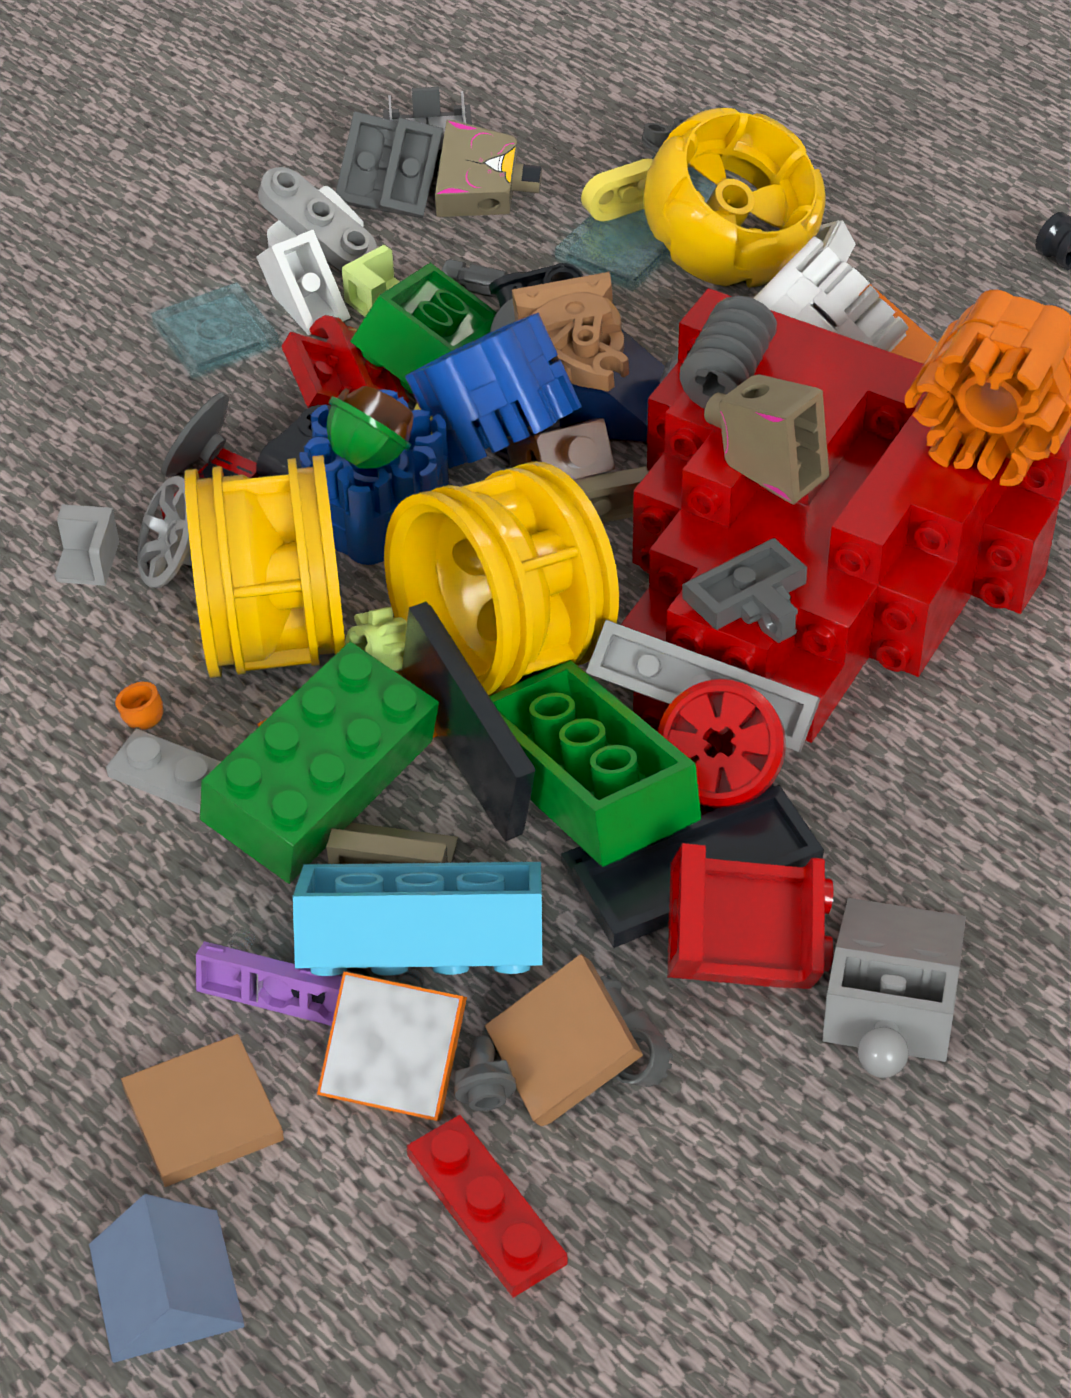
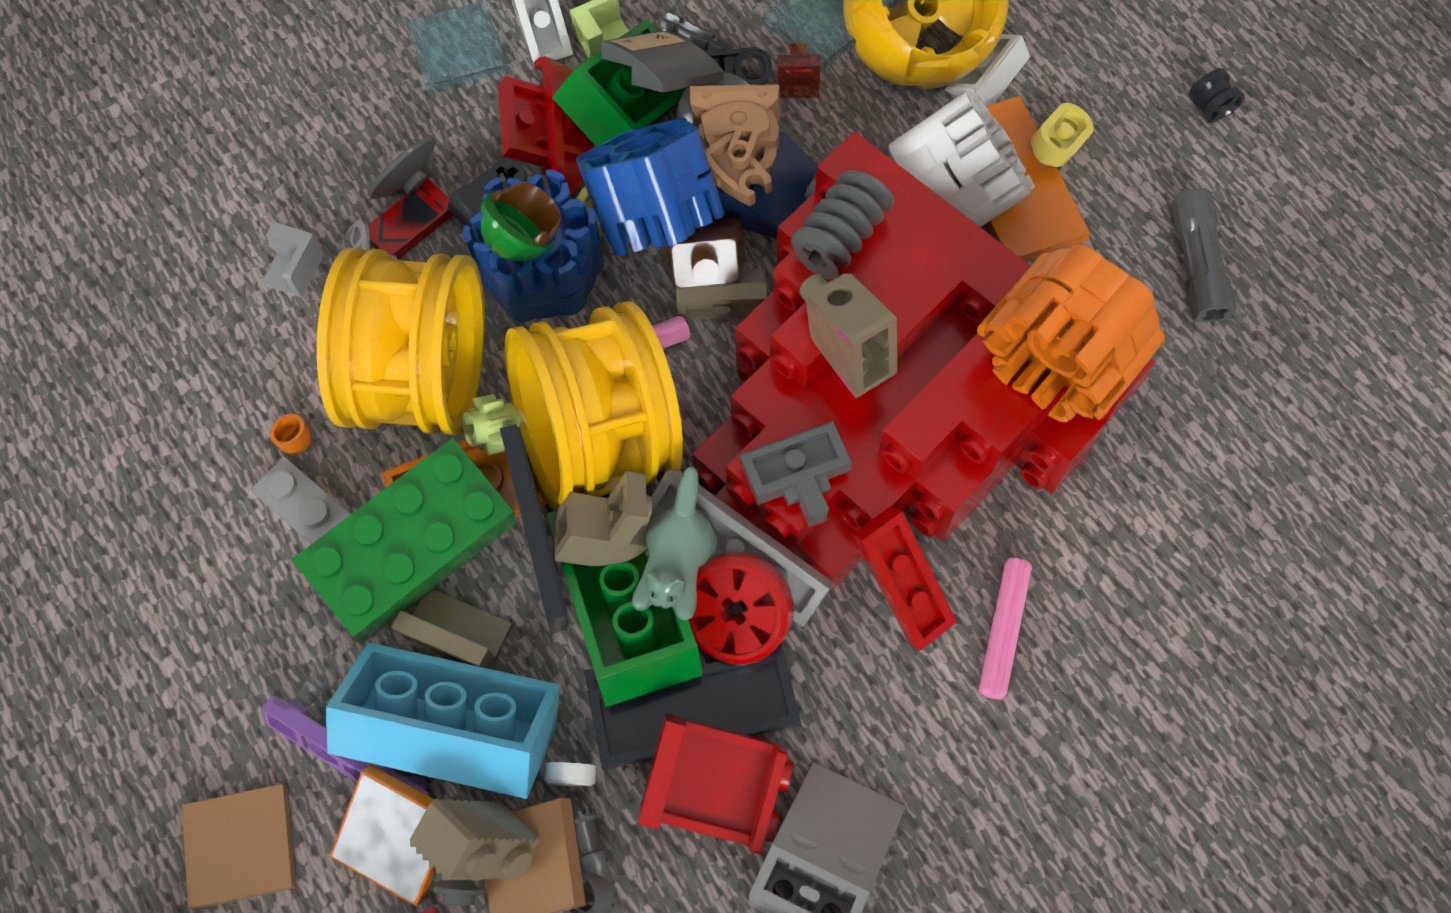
camera: 15 degrees right, 20 degrees up
(463, 283) = (662, 61): none -> dark grey slope
(500, 1004) = (474, 840): none -> dark tan brick
(555, 686) = (603, 529): none -> dark tan brick
(573, 943) = (570, 774): none -> white tile
(624, 285) = (798, 73): none -> clear red tile
(641, 683) = (676, 547): none -> sand green animal
(894, 689) = (905, 577): none -> red plate
(916, 296) = (1061, 135): none -> light yellow plate
(1015, 736) = (1005, 628): none -> bright pink axle

